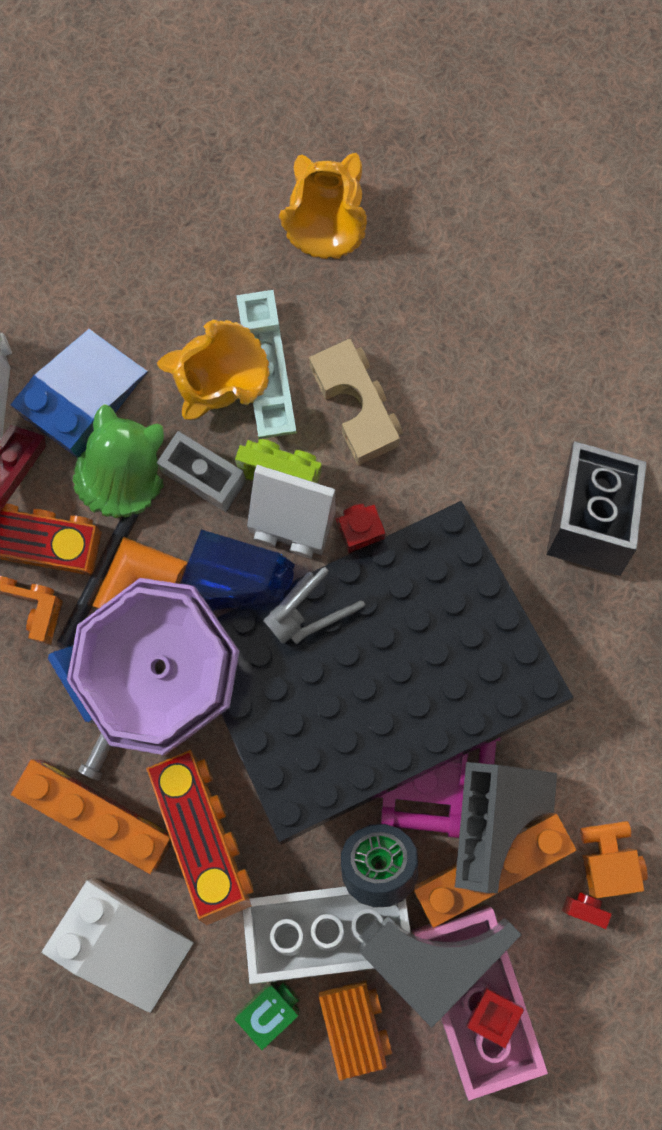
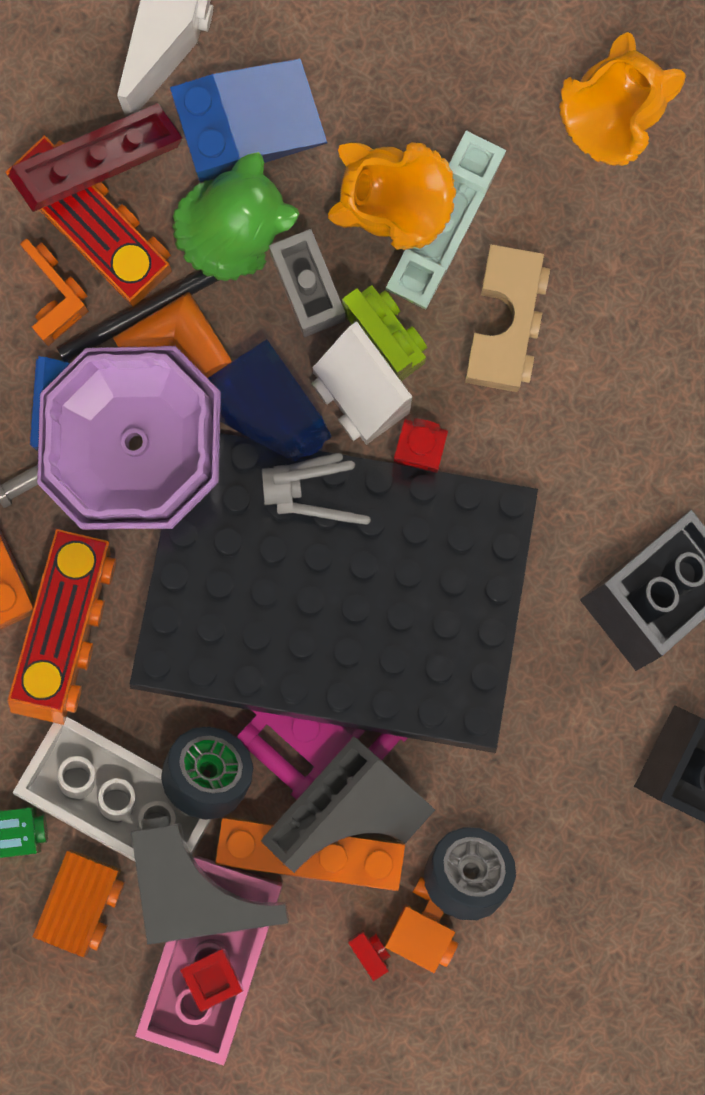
camera: 35 degrees right, 5 degrees up
(619, 781) = (469, 852): none -> wheel

